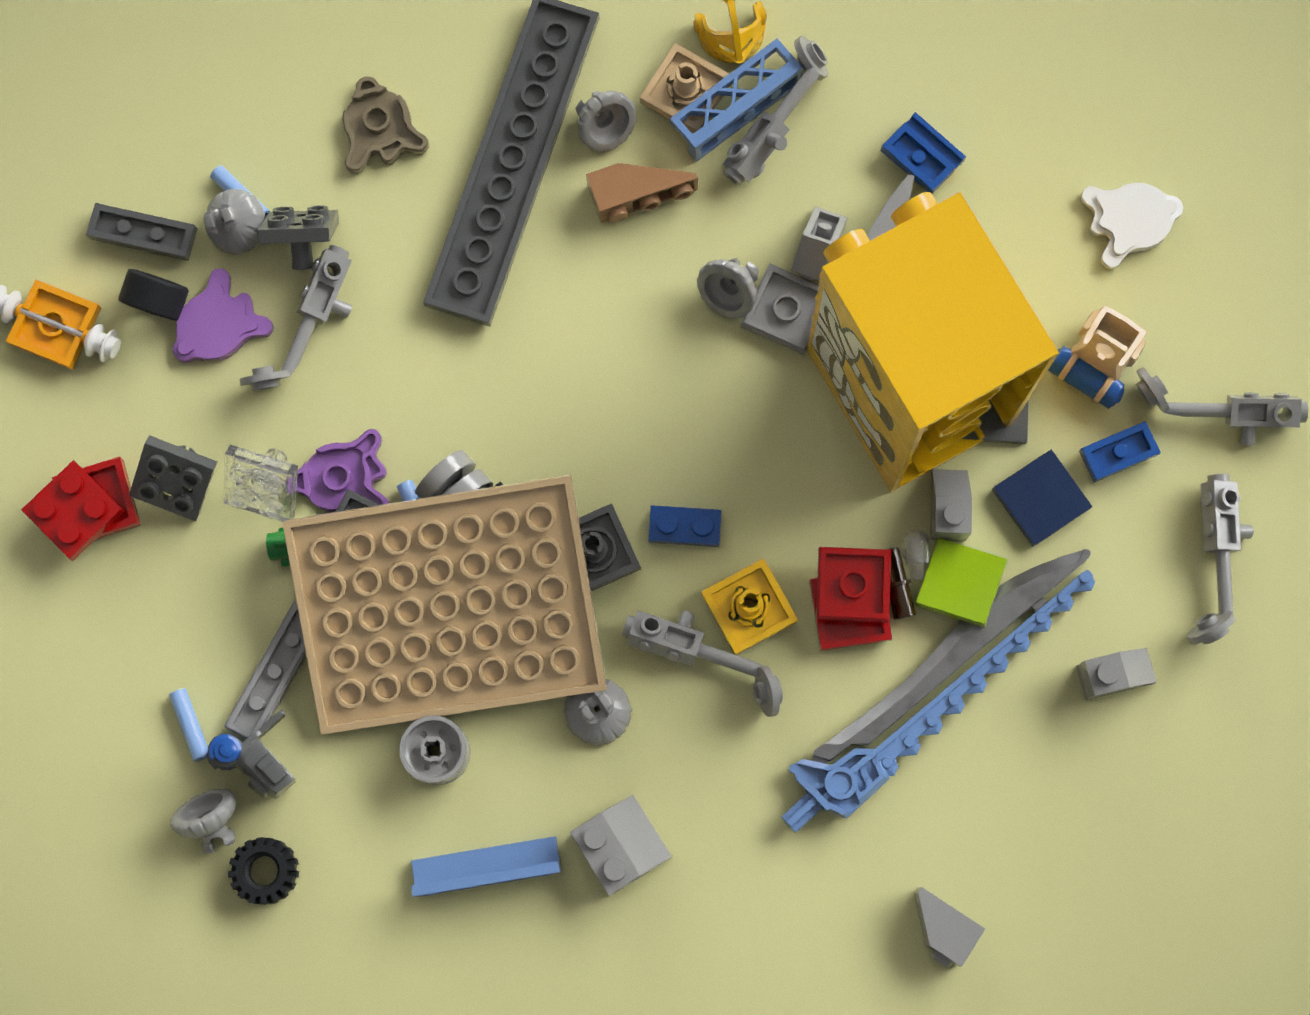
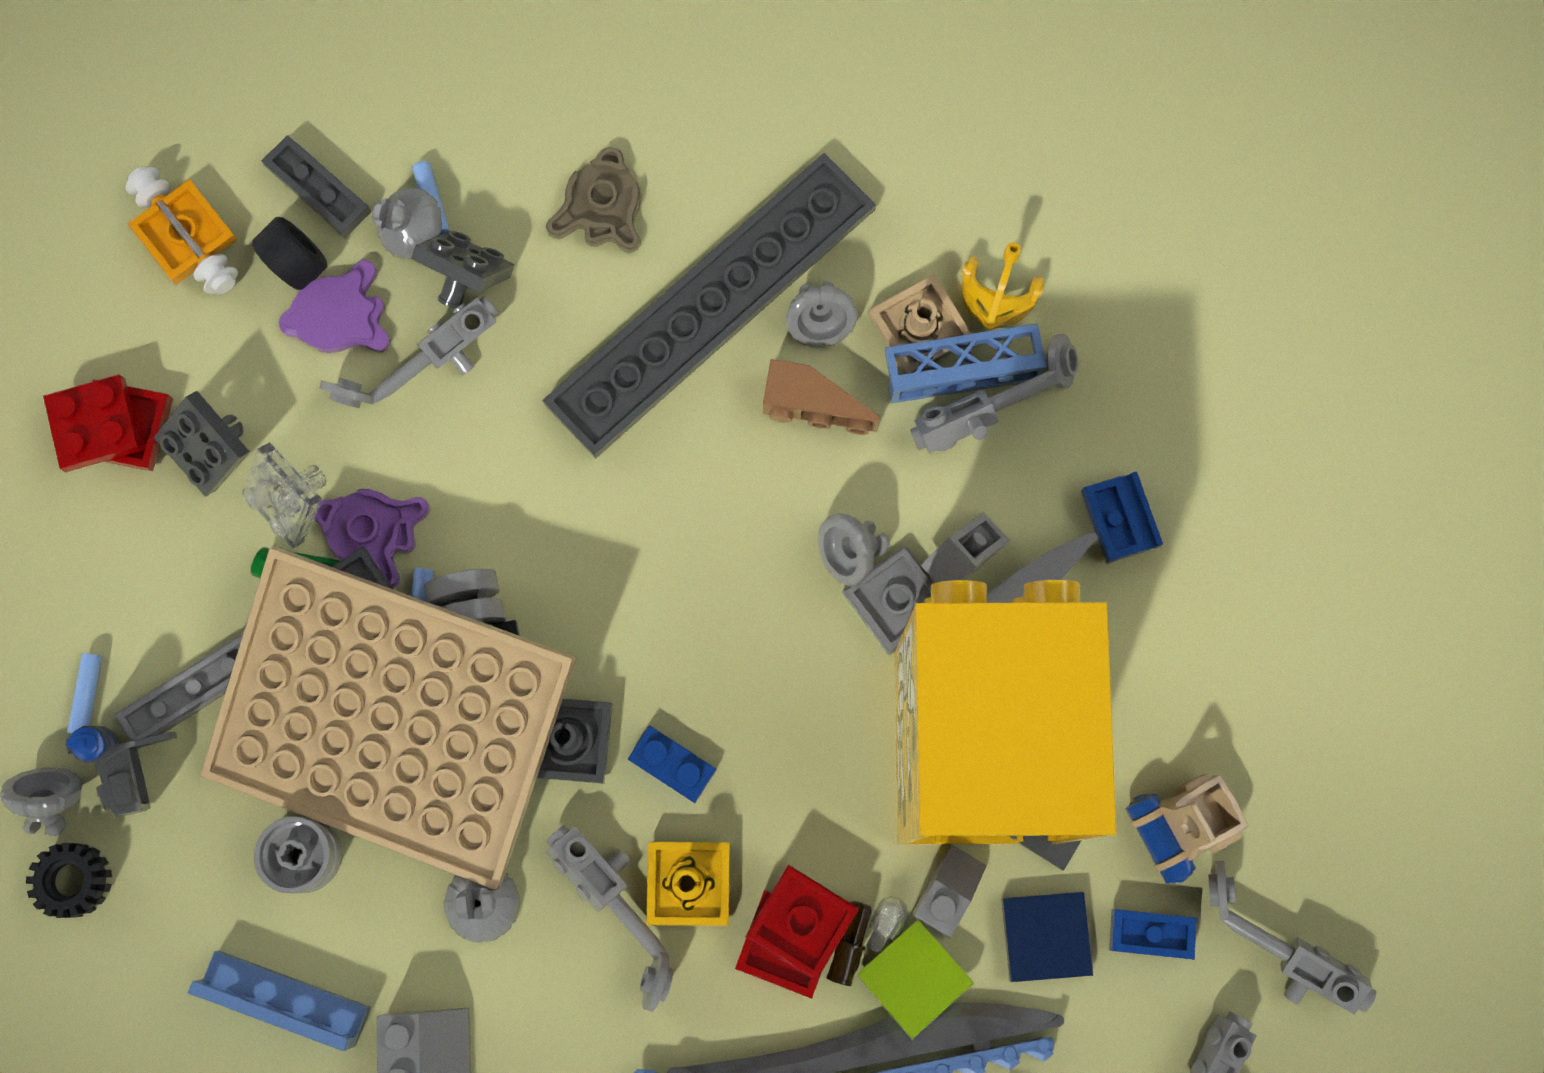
camera: 25 degrees right, 0 degrees up
(1131, 218) = (1298, 698): white tile -> none

